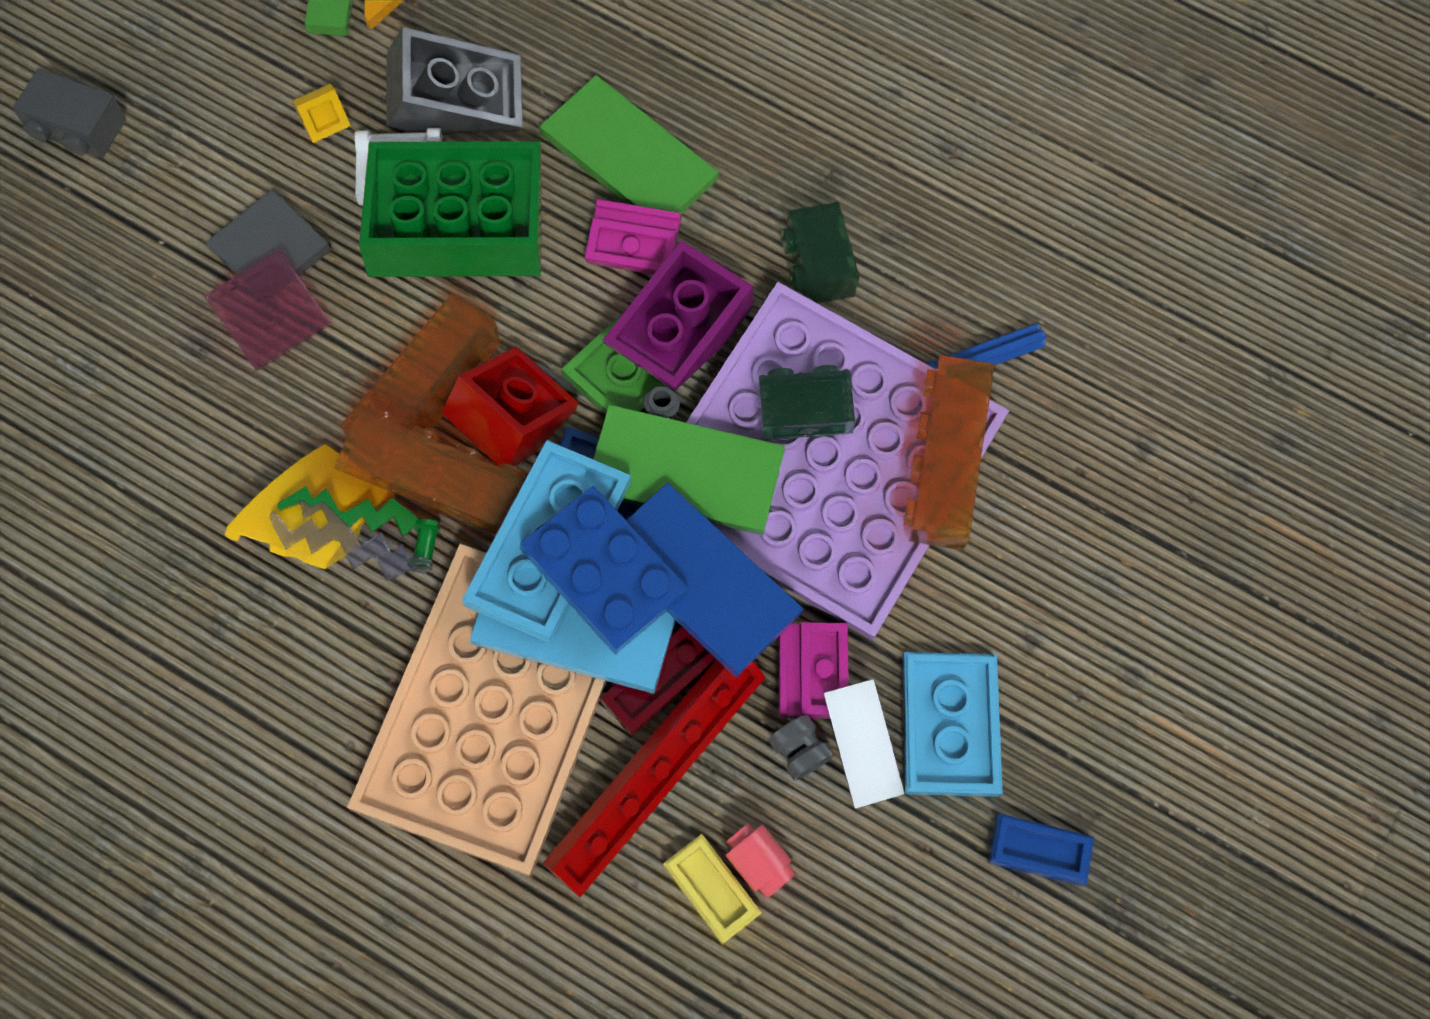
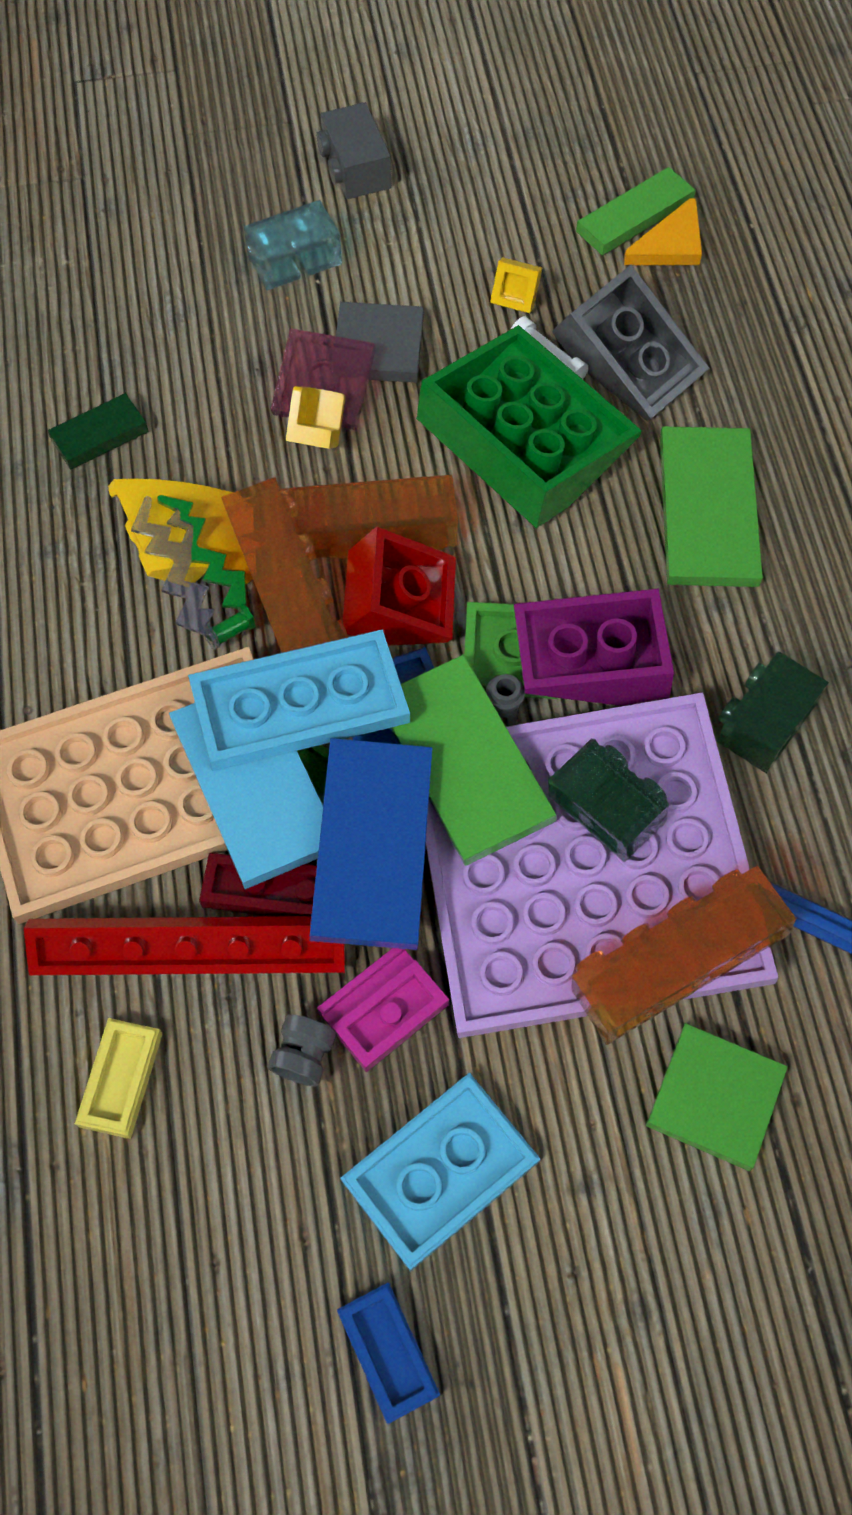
camera: 55 degrees right, 5 degrees down
(112, 220) = (299, 232): none -> clear light blue piece
(143, 508) = (98, 431): none -> dark green tile
(303, 343) = (315, 417): none -> yellow panel
(604, 569) = (304, 756): blue plate -> none
(631, 236) = (634, 558): dark pink plate -> none
(760, 859) = (172, 1095): coral brick -> none
(864, 743) = (352, 1103): white sticker -> none
(1042, 515) = (717, 1097): none -> bright green tile

